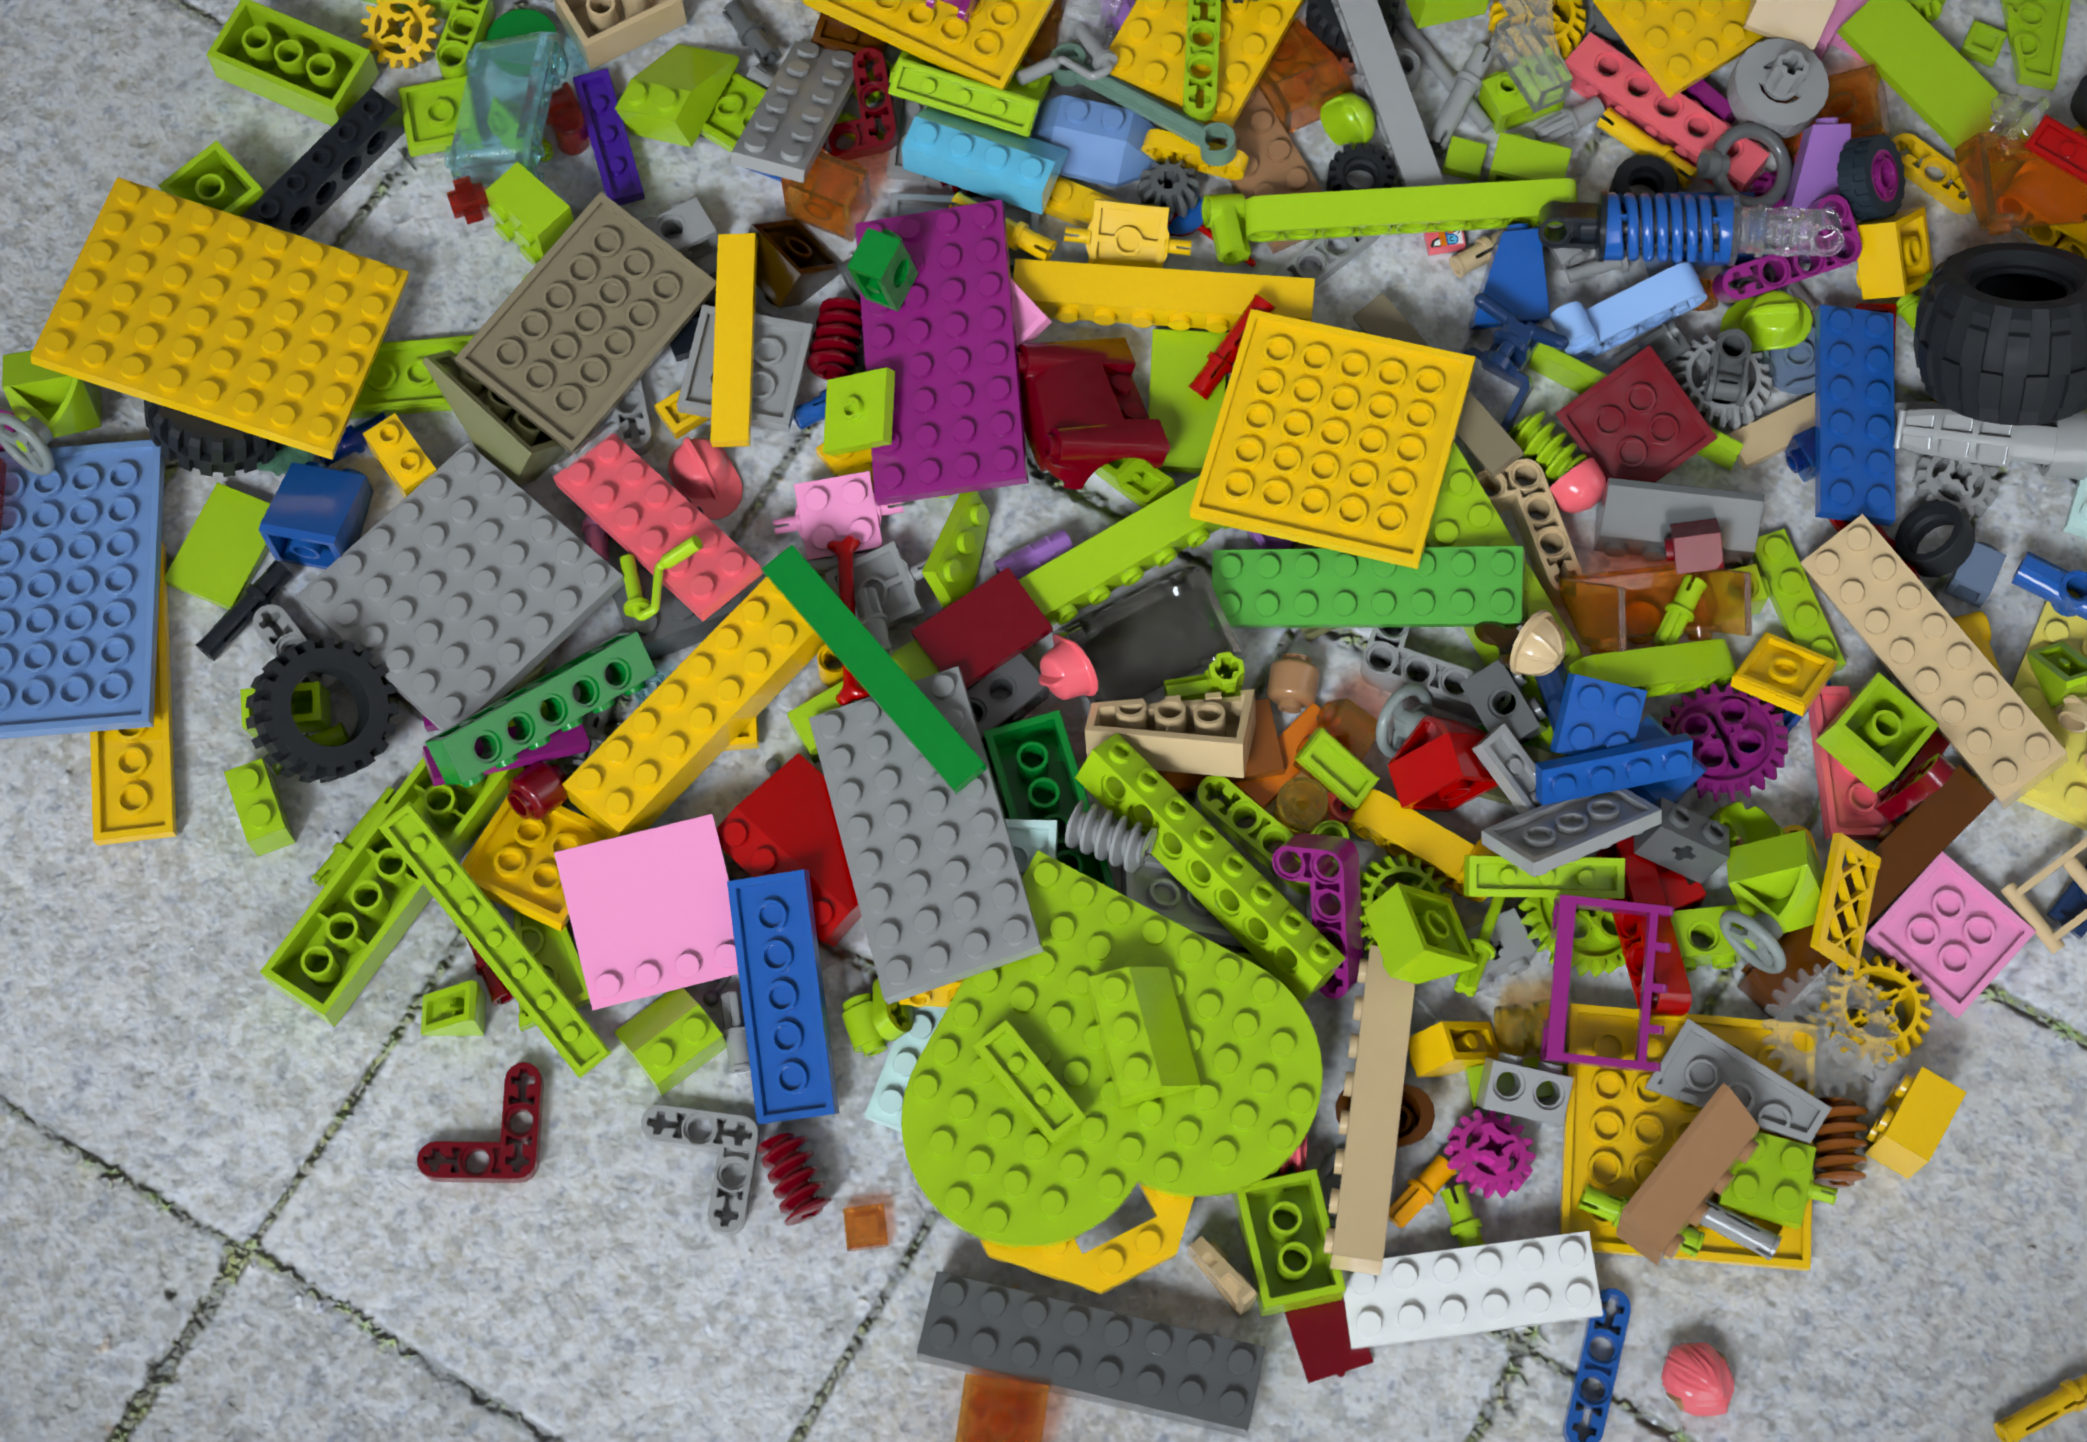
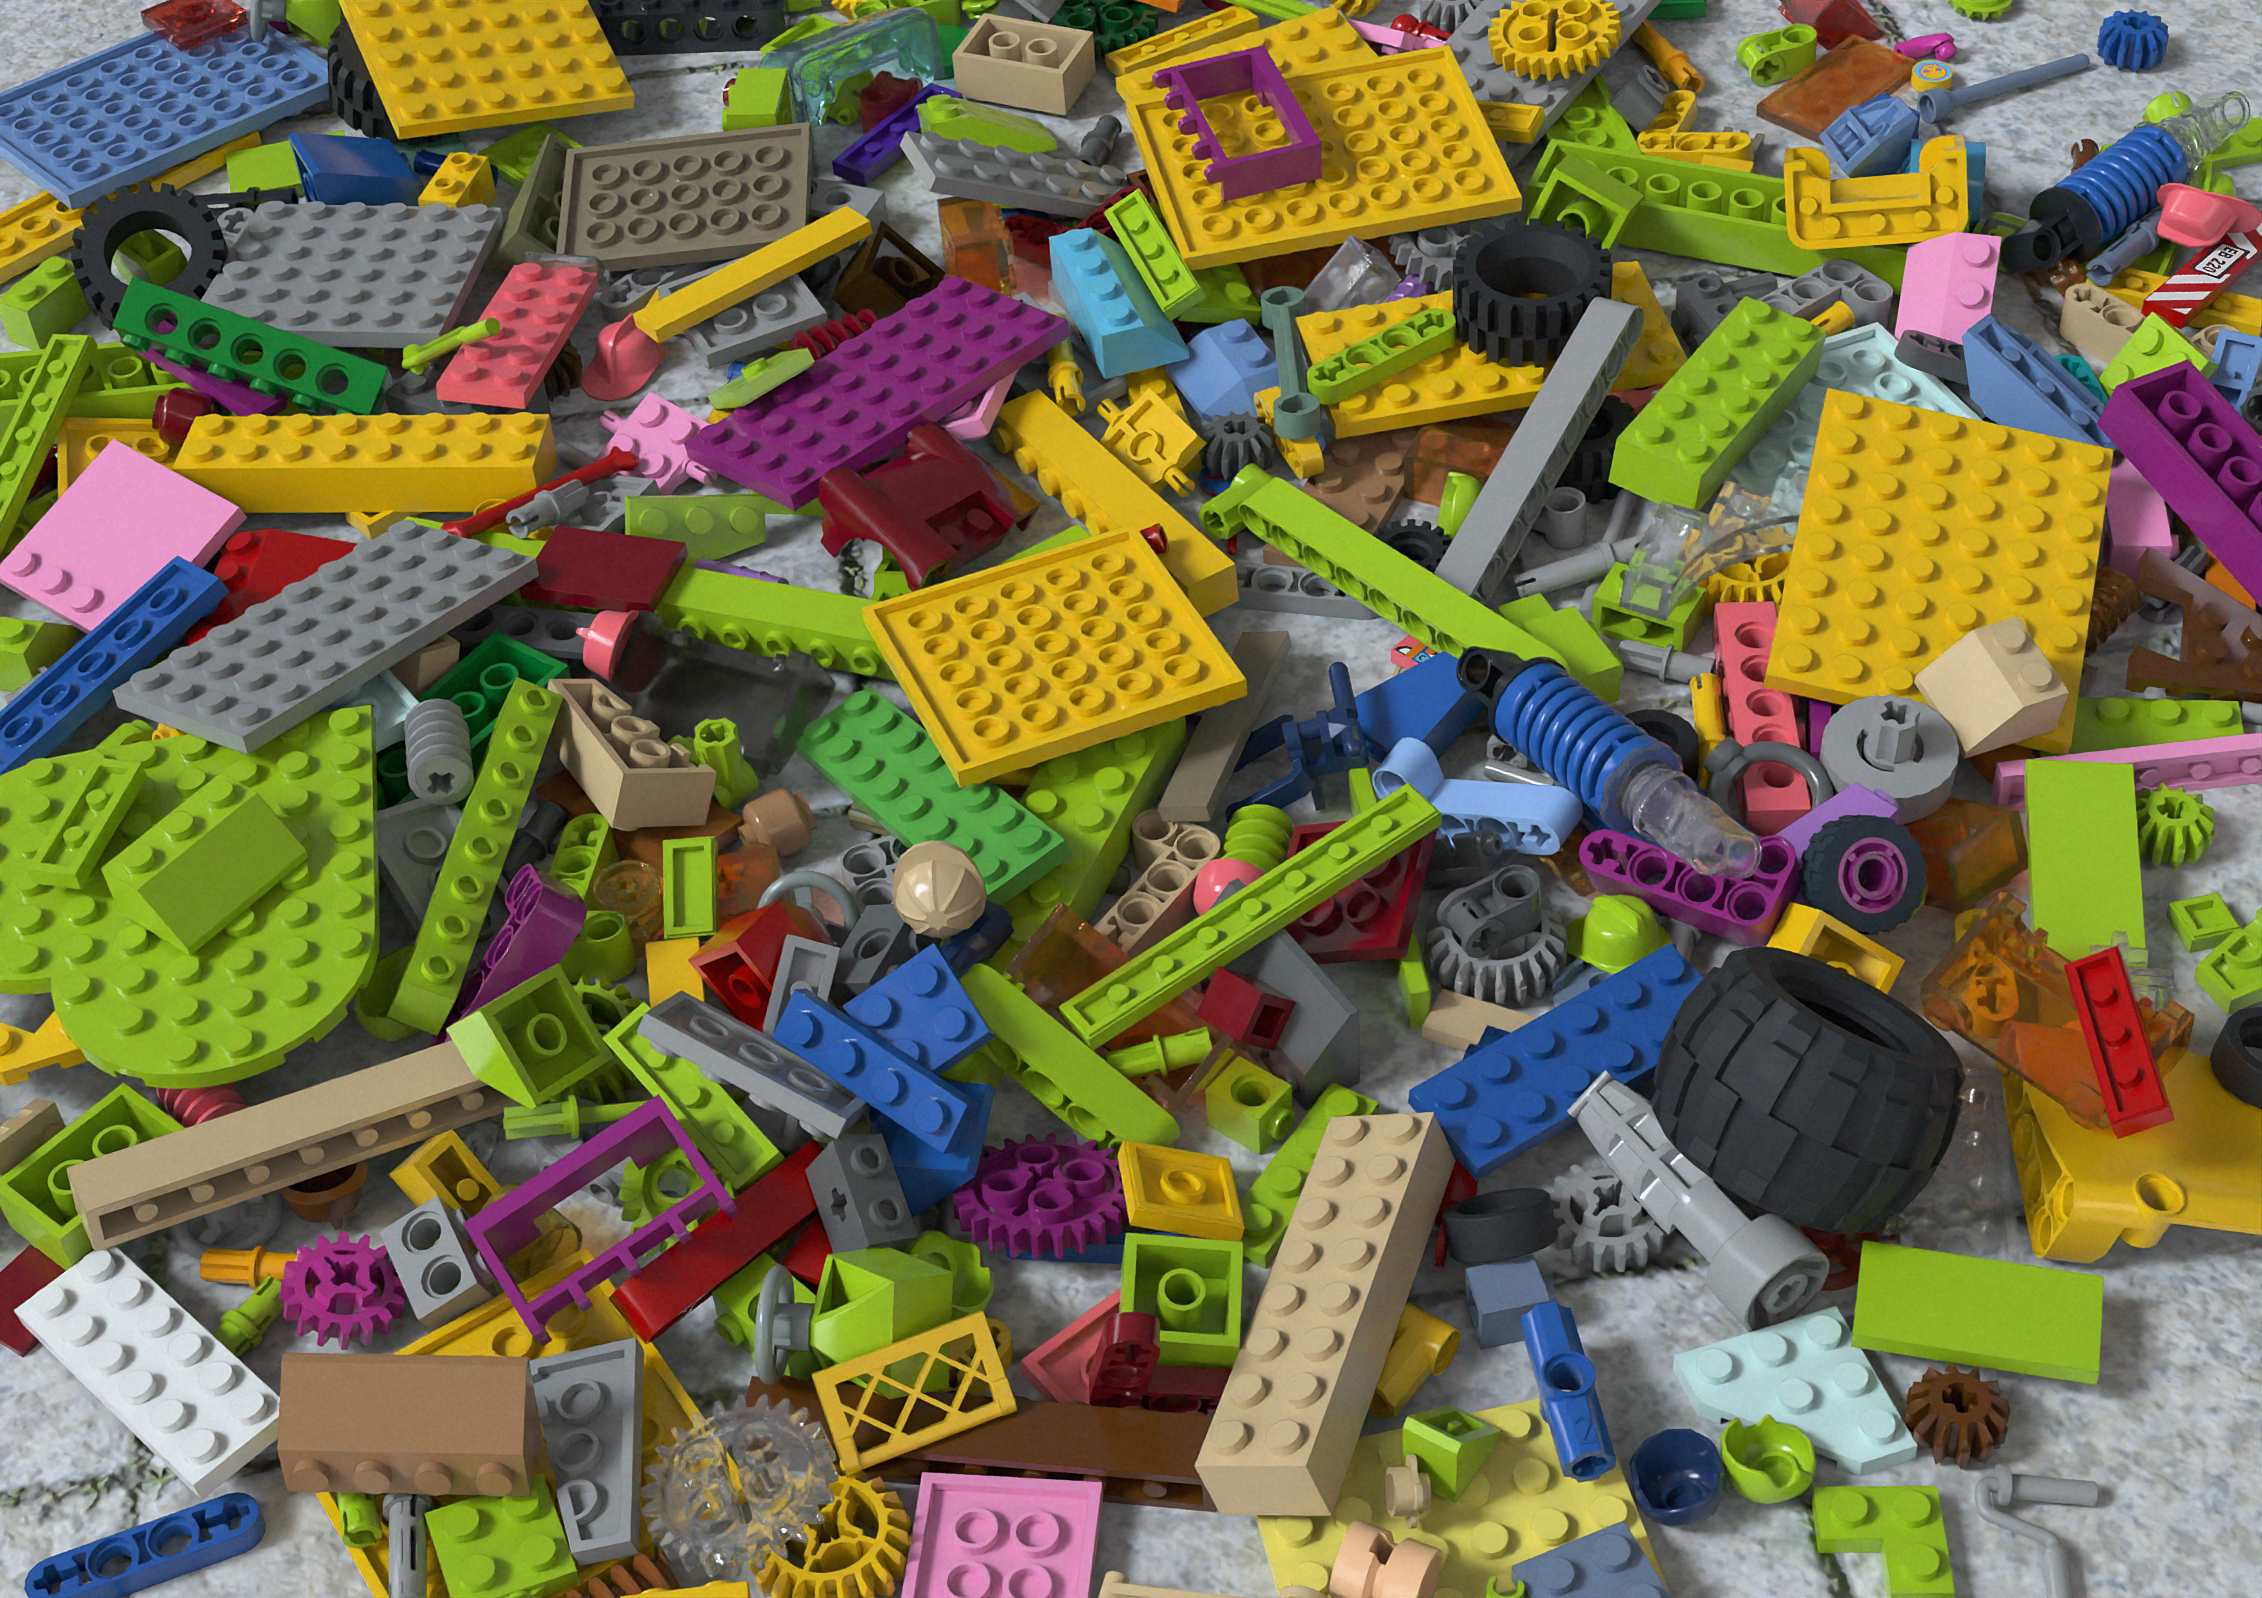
camera: 55 degrees right, 25 degrees down
(874, 669) = (468, 504): green tile -> none
(883, 268) = (900, 306): green brick -> none
(1102, 62) = (1296, 305): light grey piece -> none
(1650, 493) = (1249, 916): none -> lime tile

